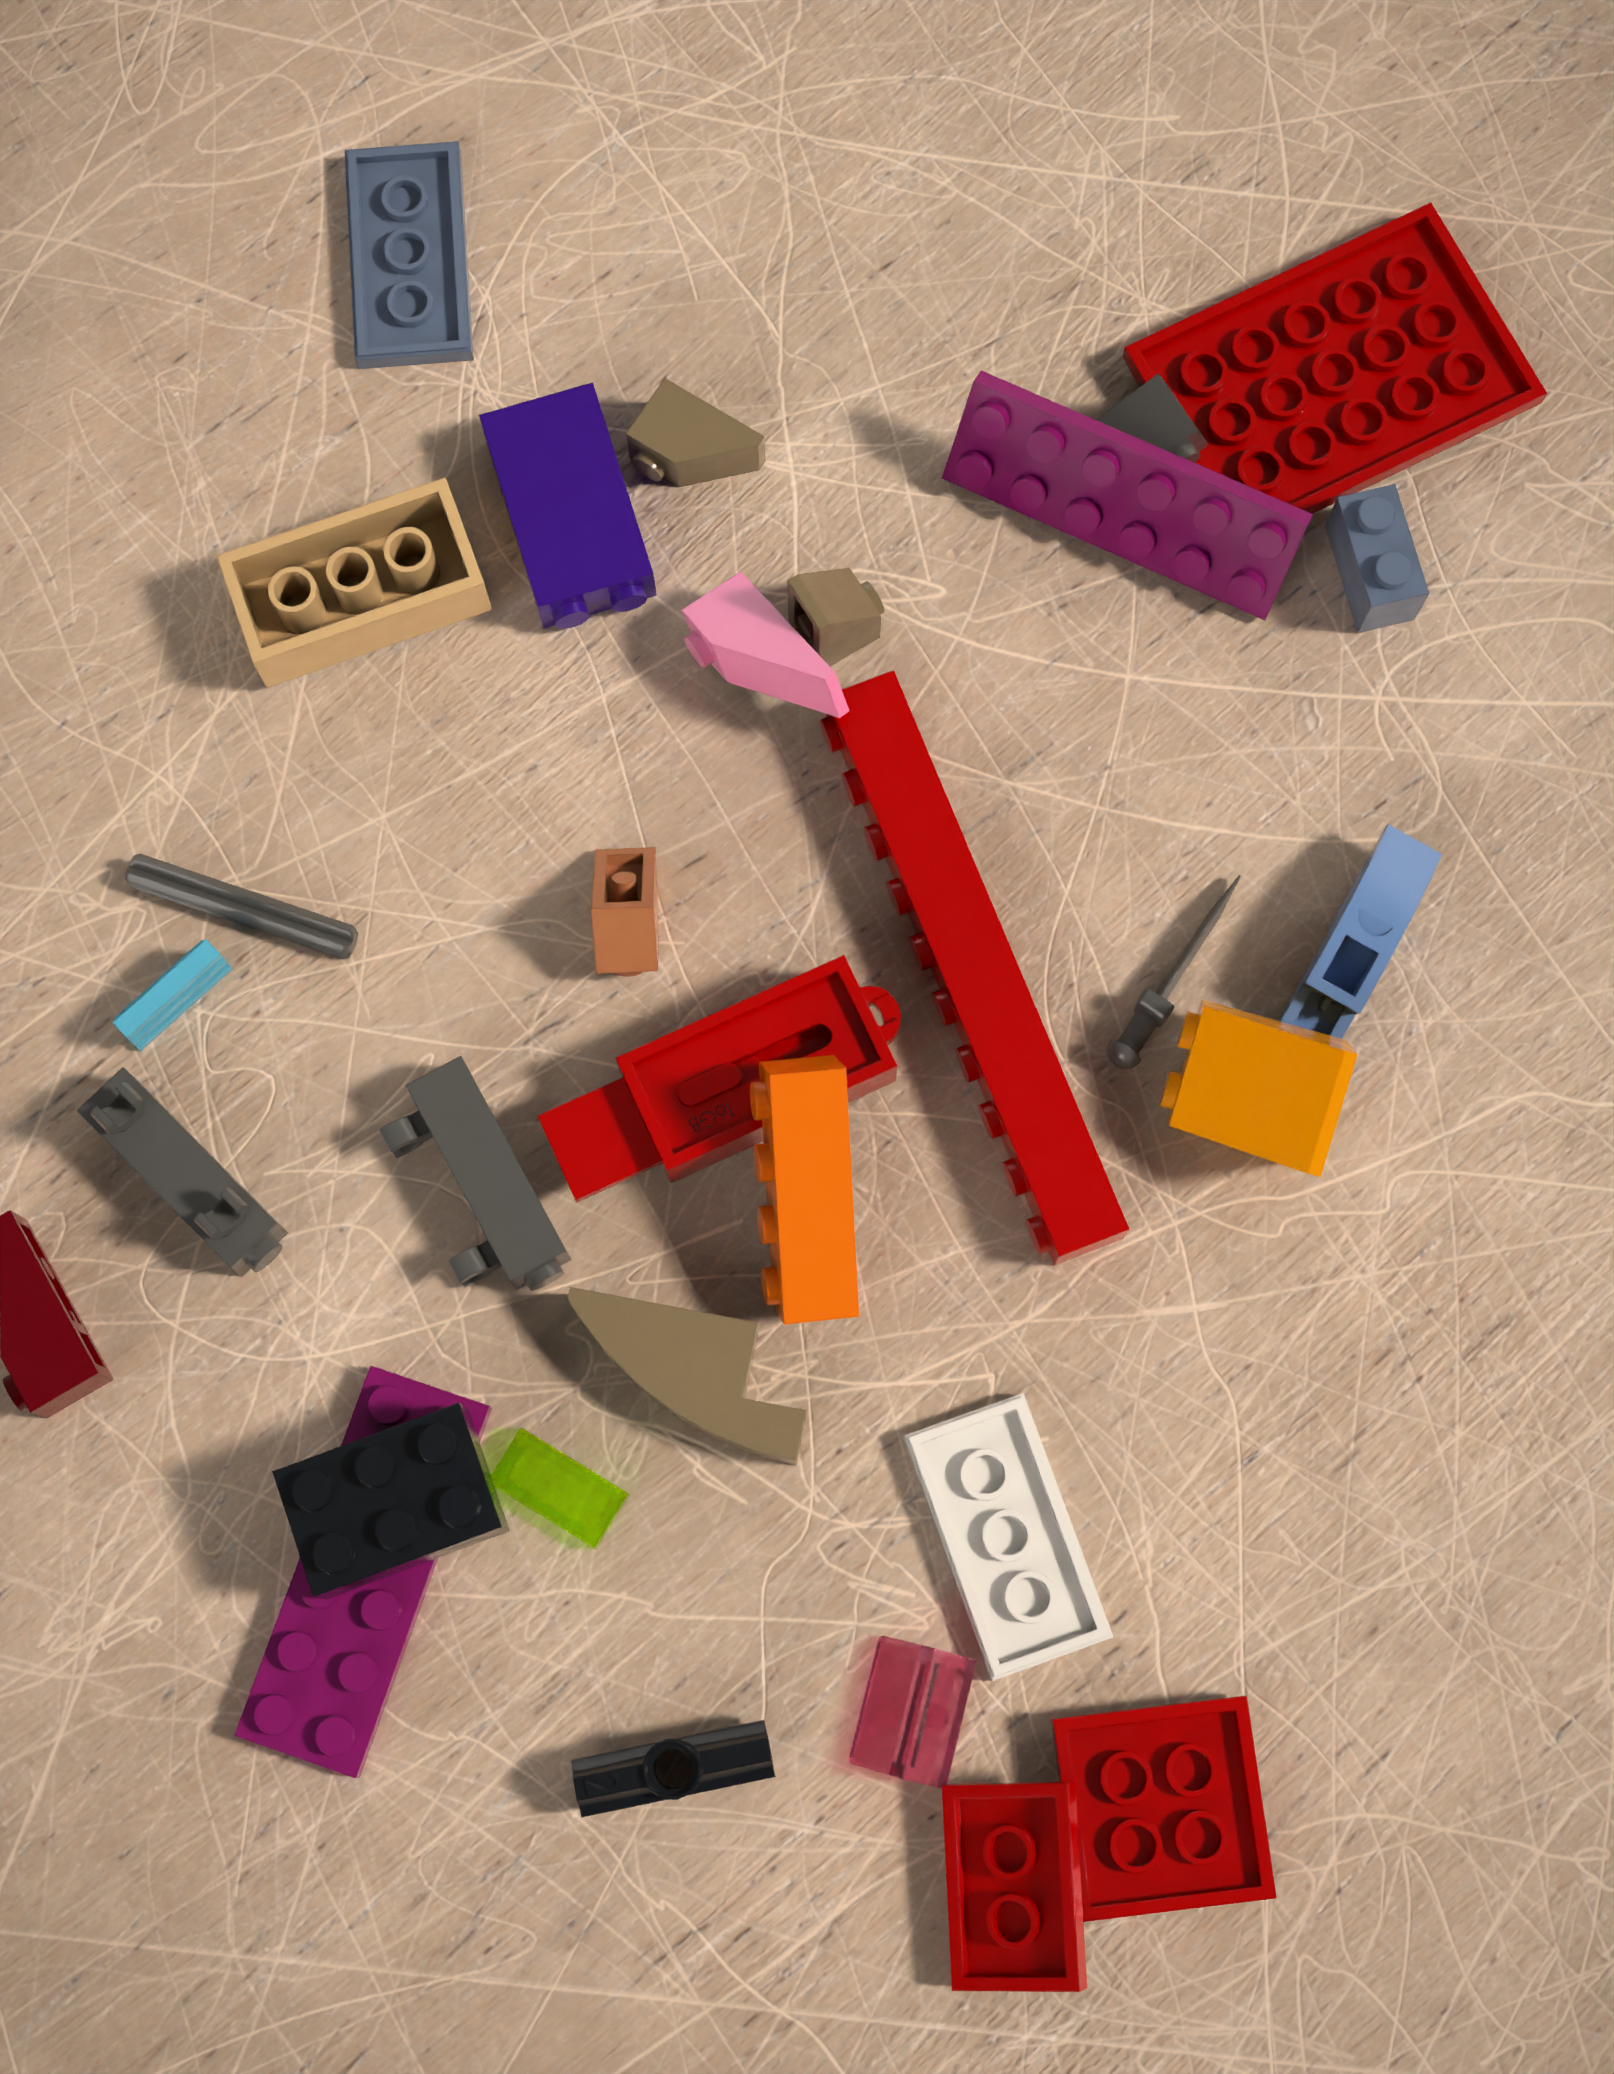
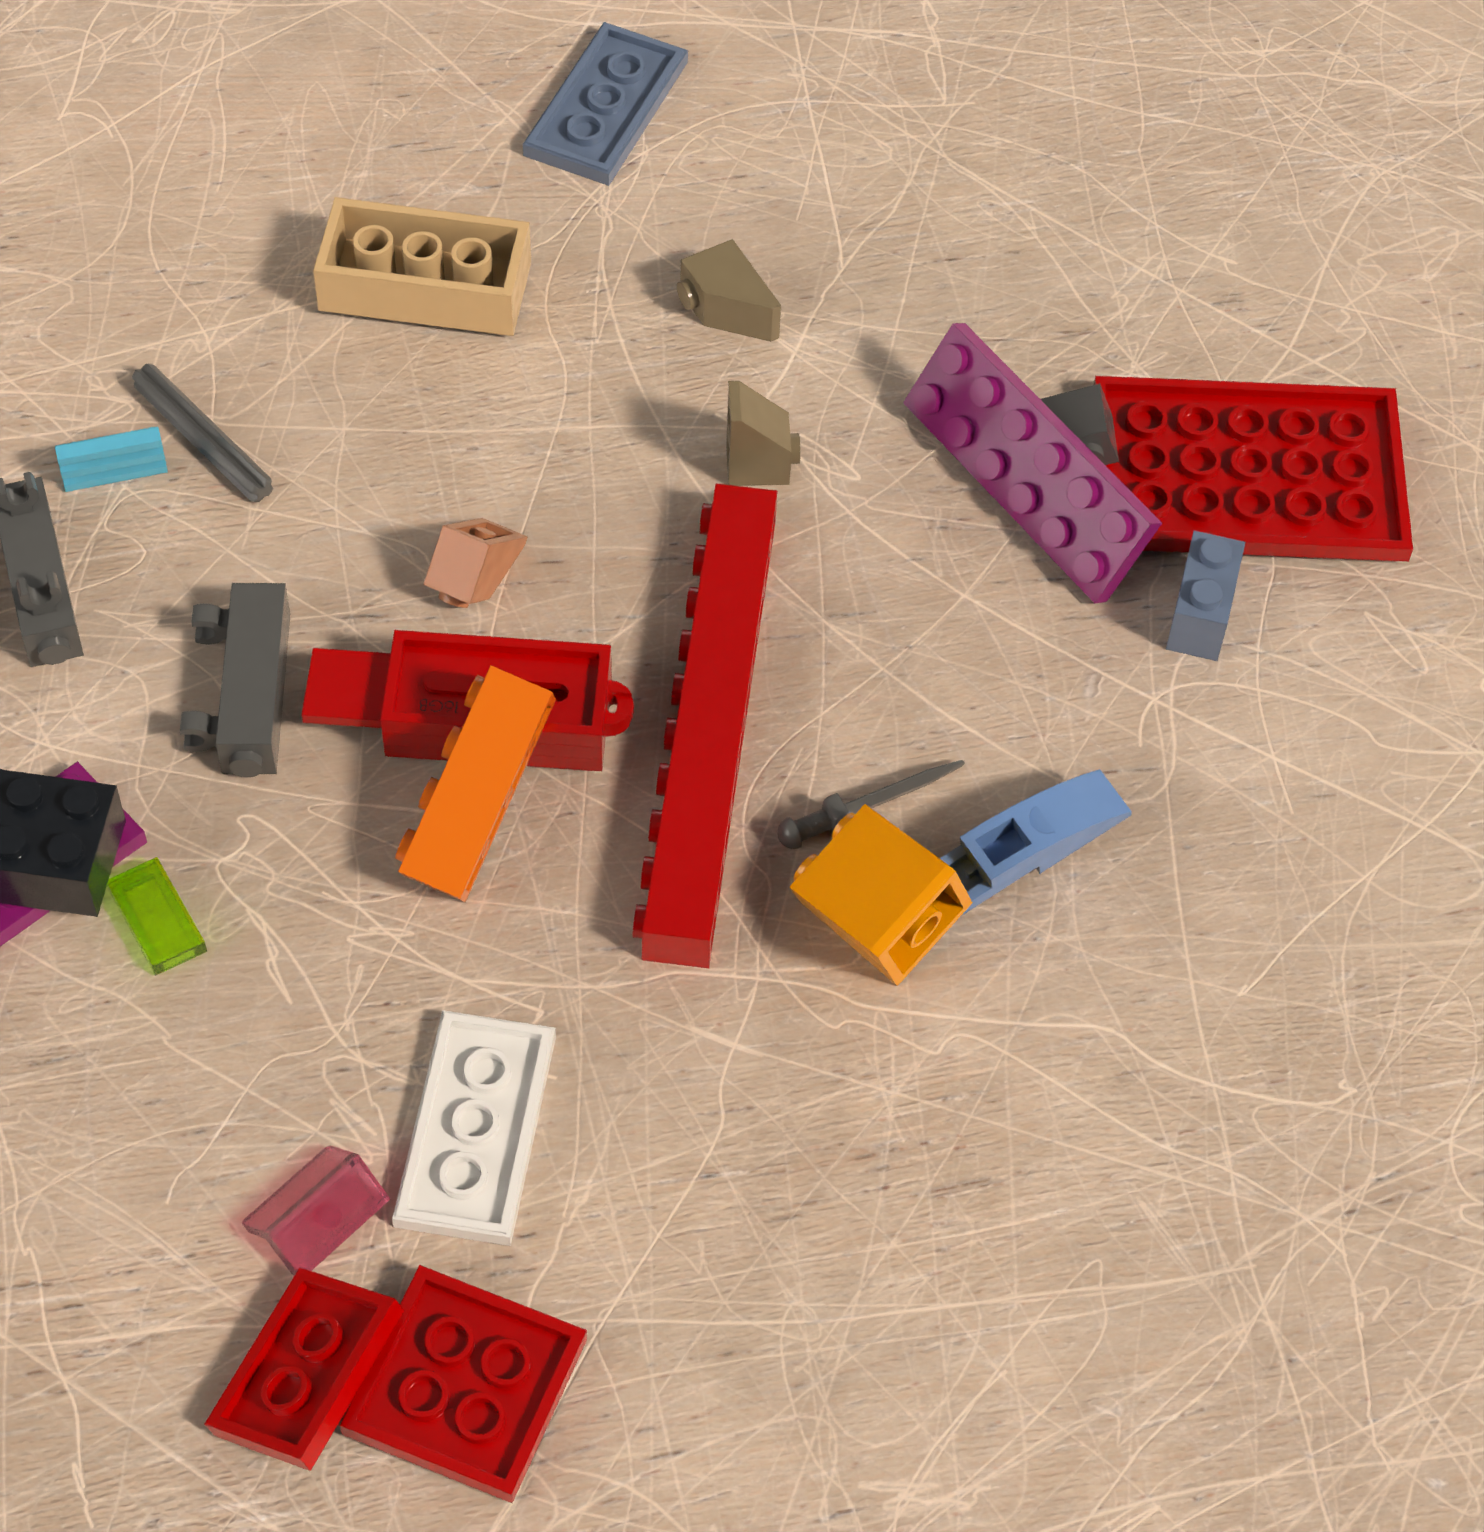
camera: 25 degrees right, 20 degrees down
(569, 507) = (610, 293): dark purple brick -> none
(630, 1777) = (70, 1133): black piece -> none
(693, 1368) = (316, 883): dark tan slope -> none
(759, 648) = (684, 432): bright pink slope -> none

